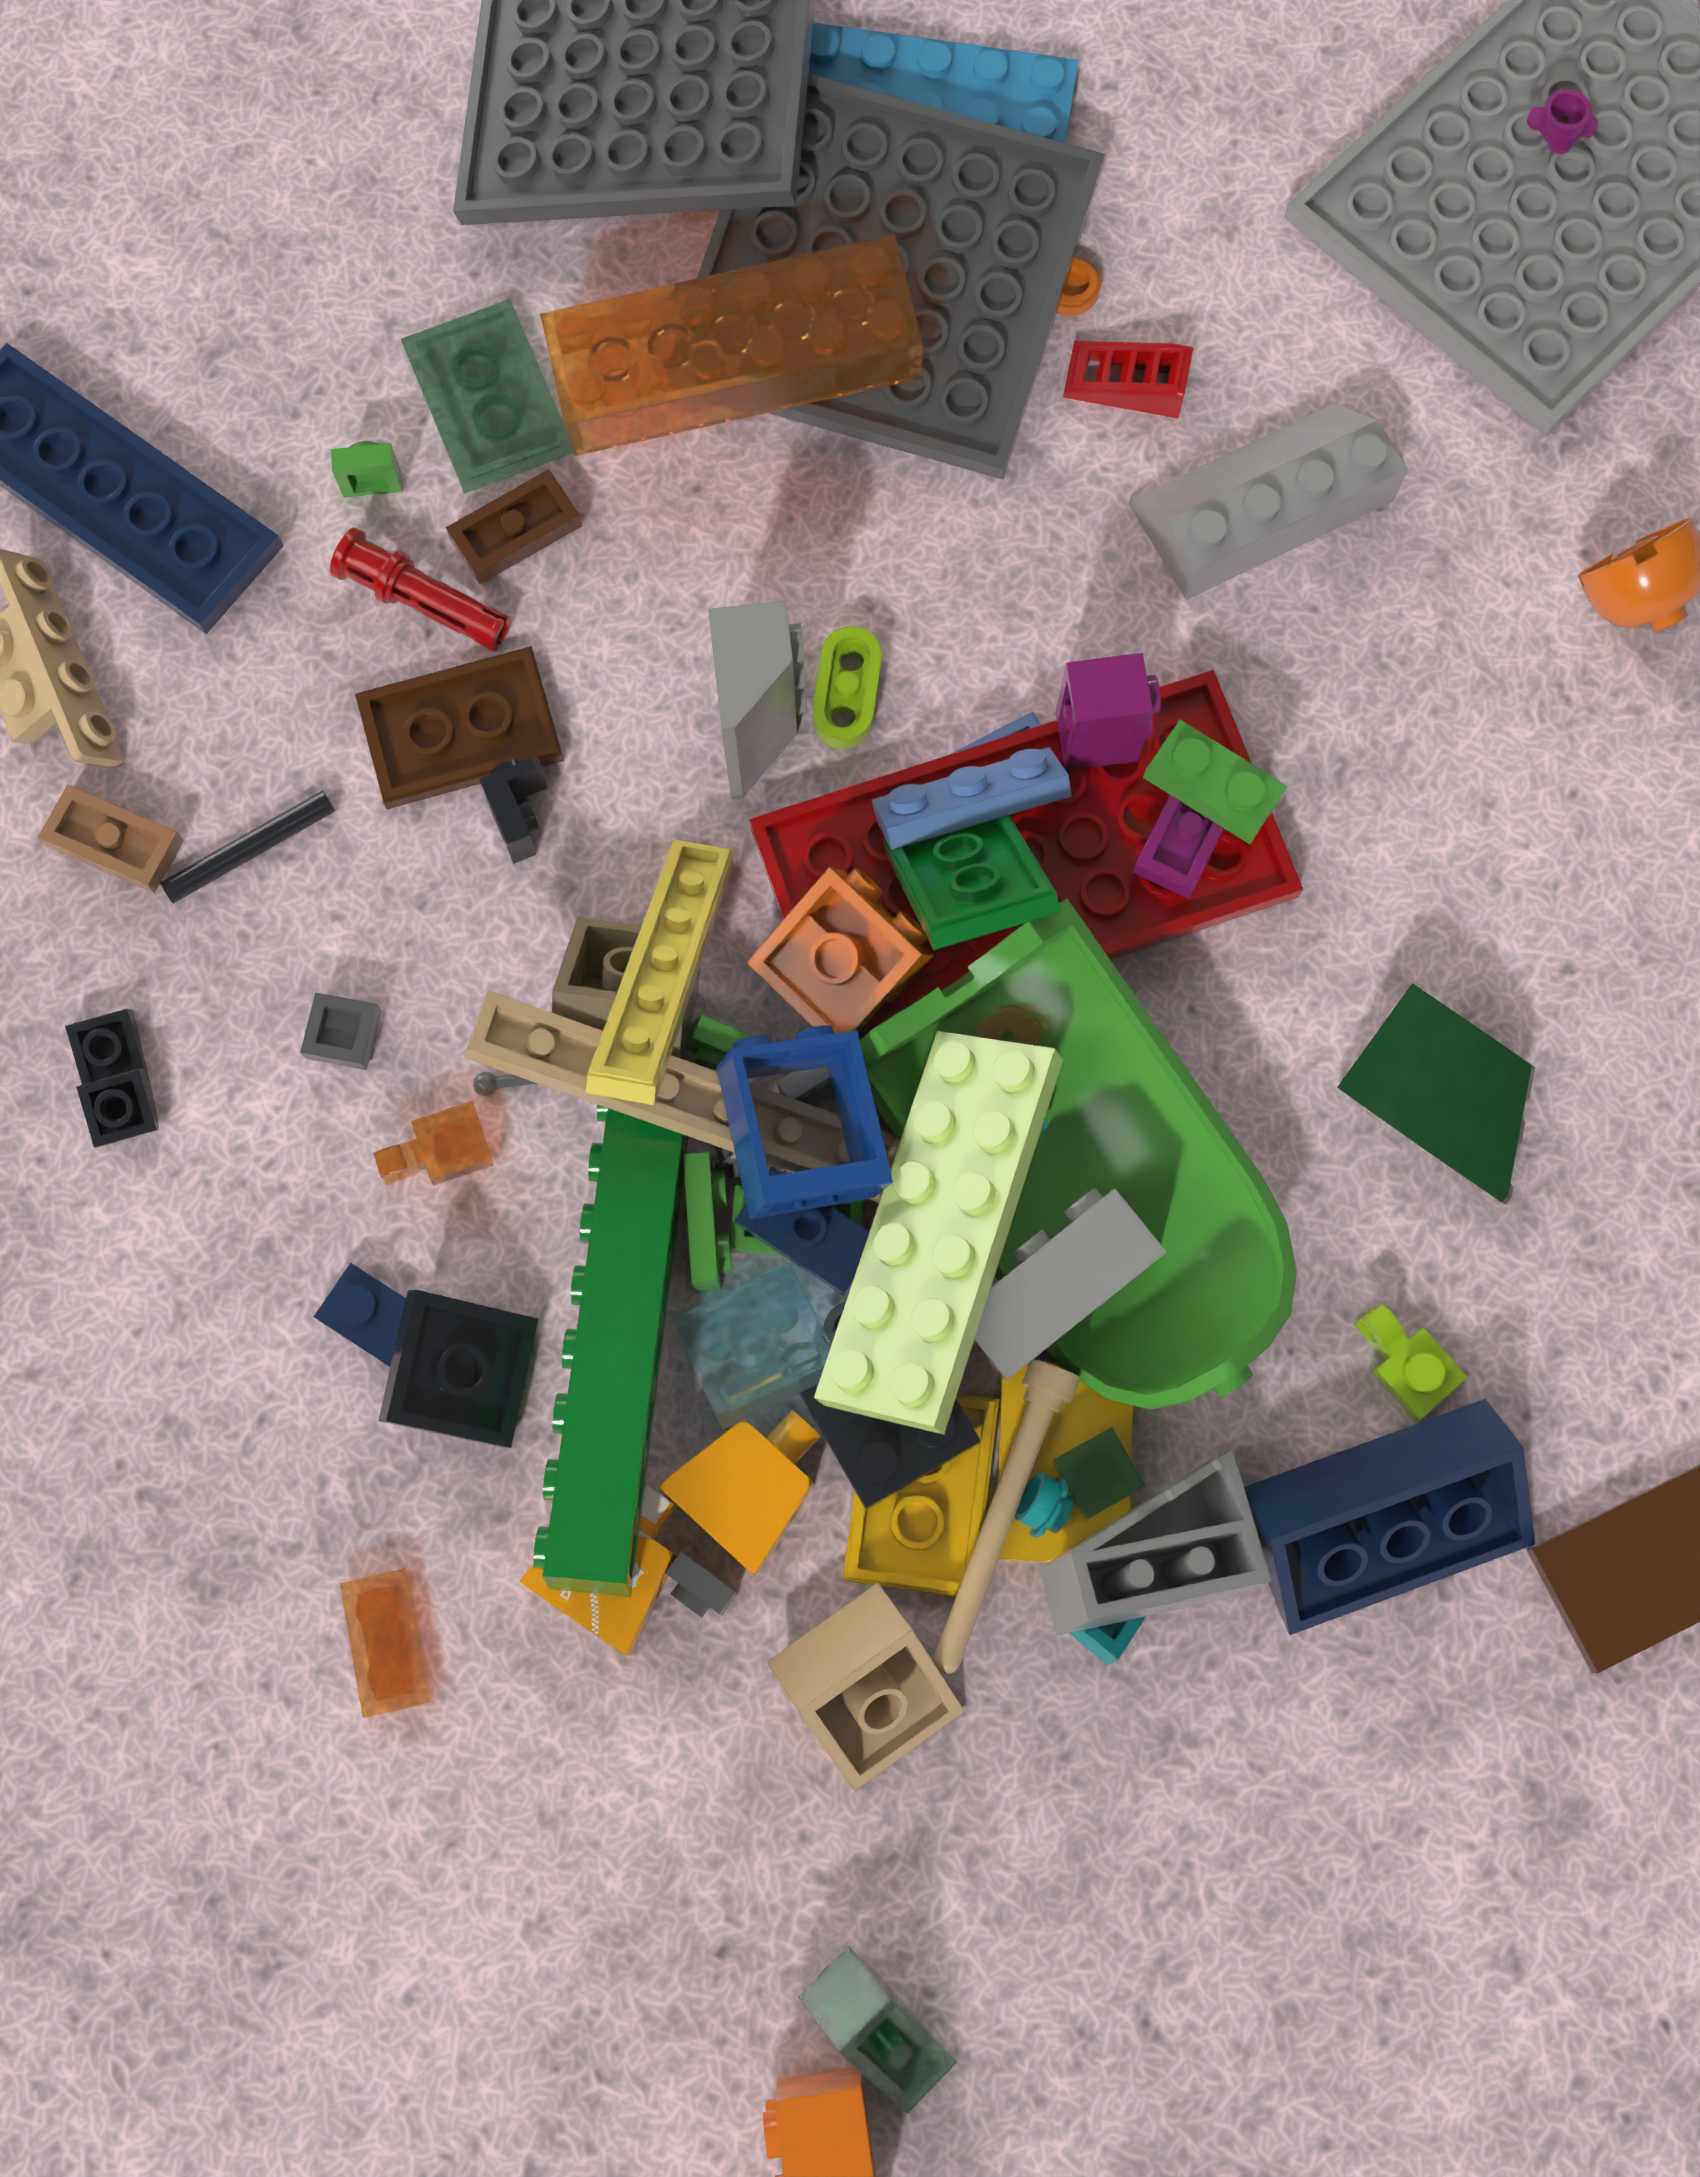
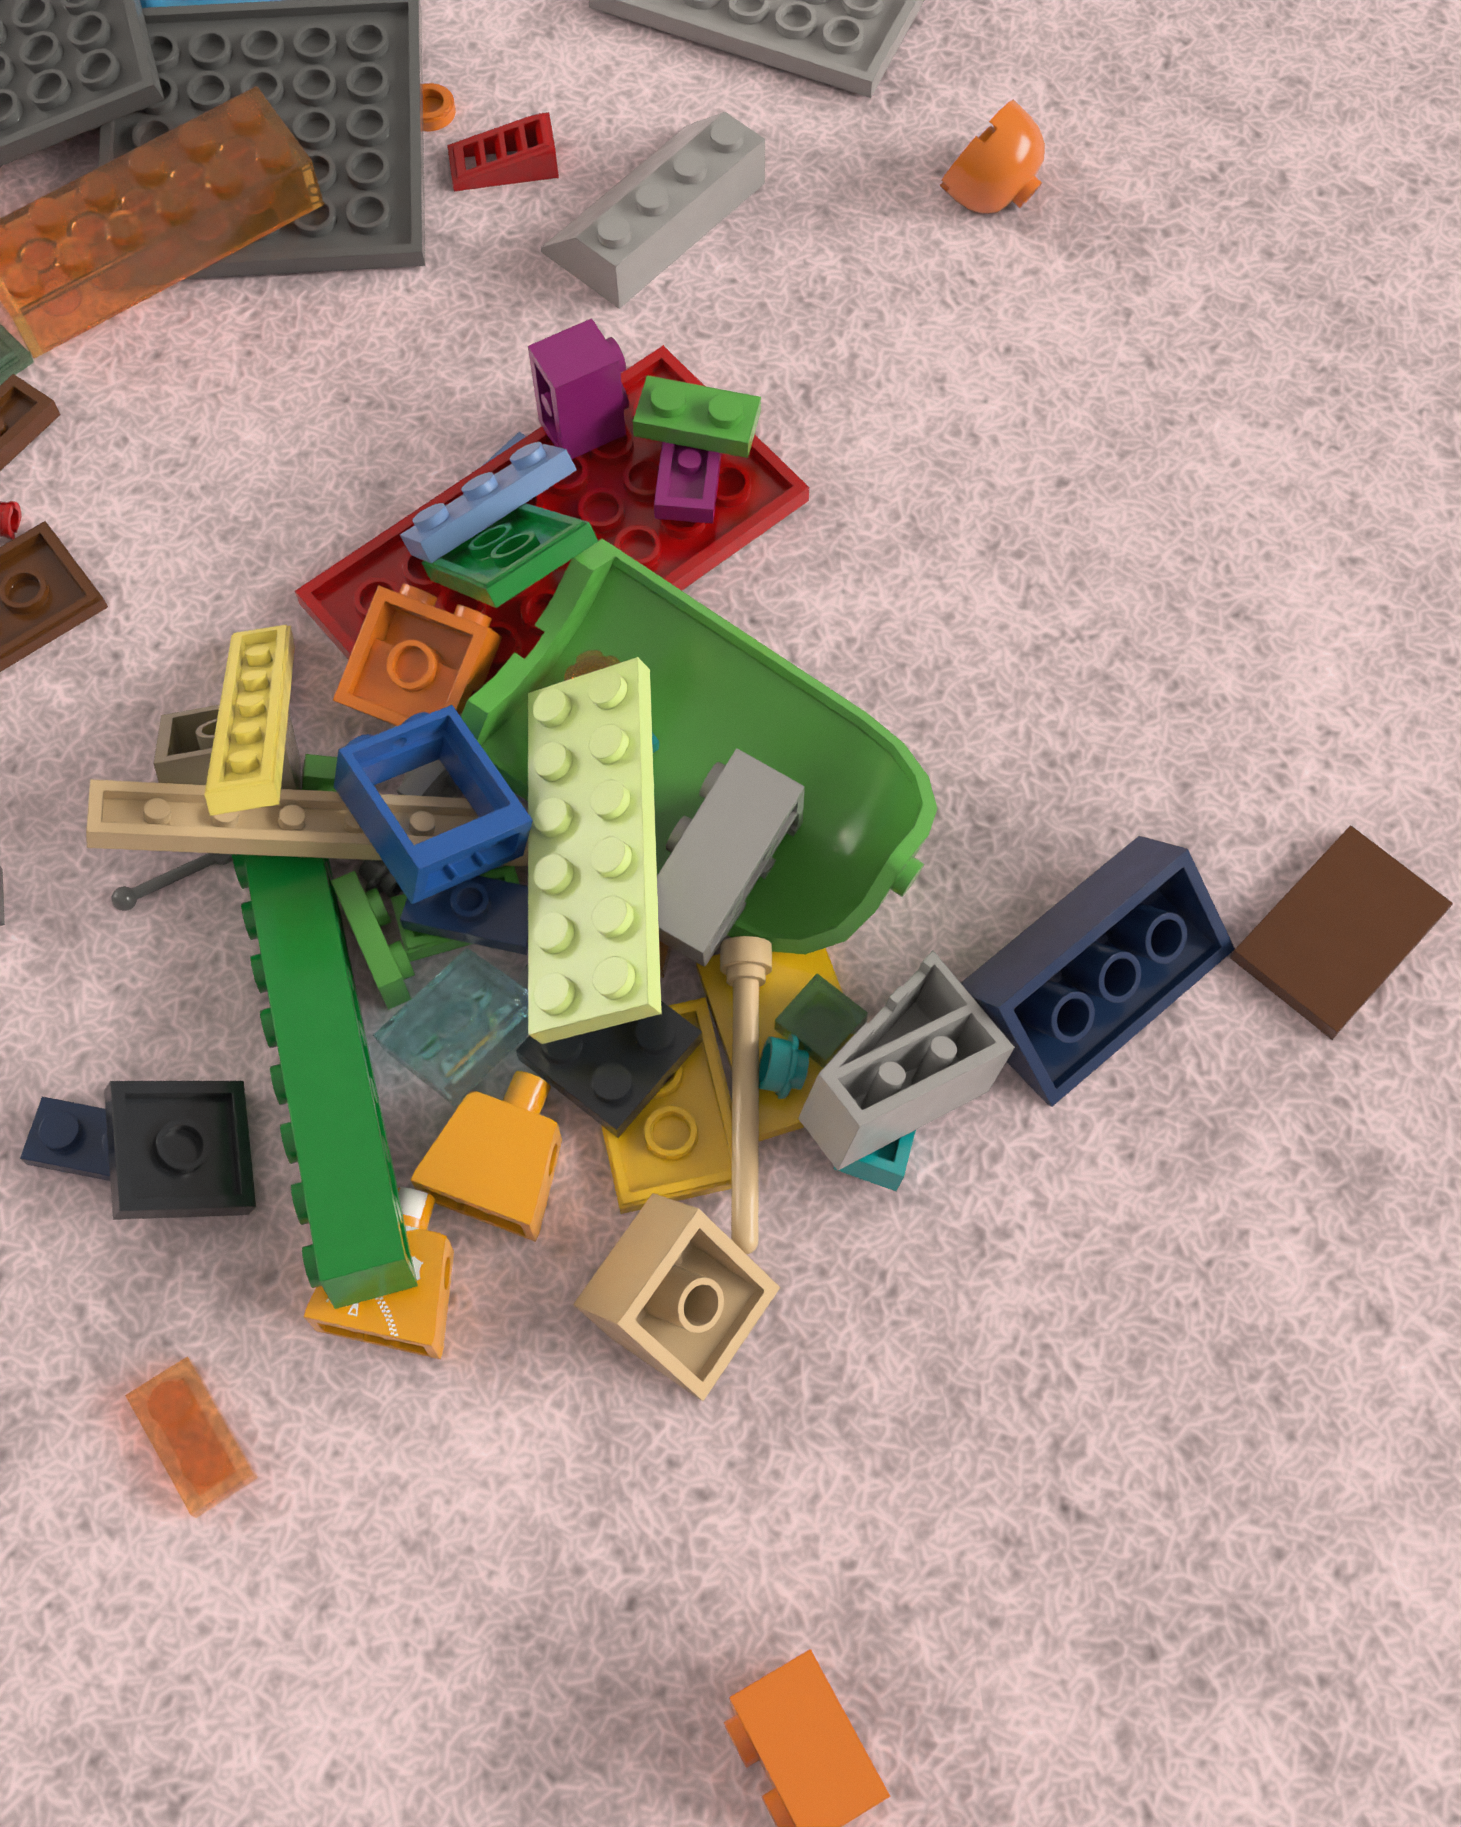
camera: 20 degrees left, 10 degrees down
(446, 1145) = (99, 960): clear orange plate -> none
(515, 818) = (65, 648): black bracket -> none
(698, 1587) = (483, 1262): dark grey plate -> none
(758, 686) = (259, 467): light grey slope -> none
(847, 690) = (346, 465): lime plate -> none
(876, 2030) = (809, 1610): clear green slope -> none
(1413, 1367) = (1065, 841): lime plate -> none
(1446, 1089) = (997, 601): dark green slope -> none

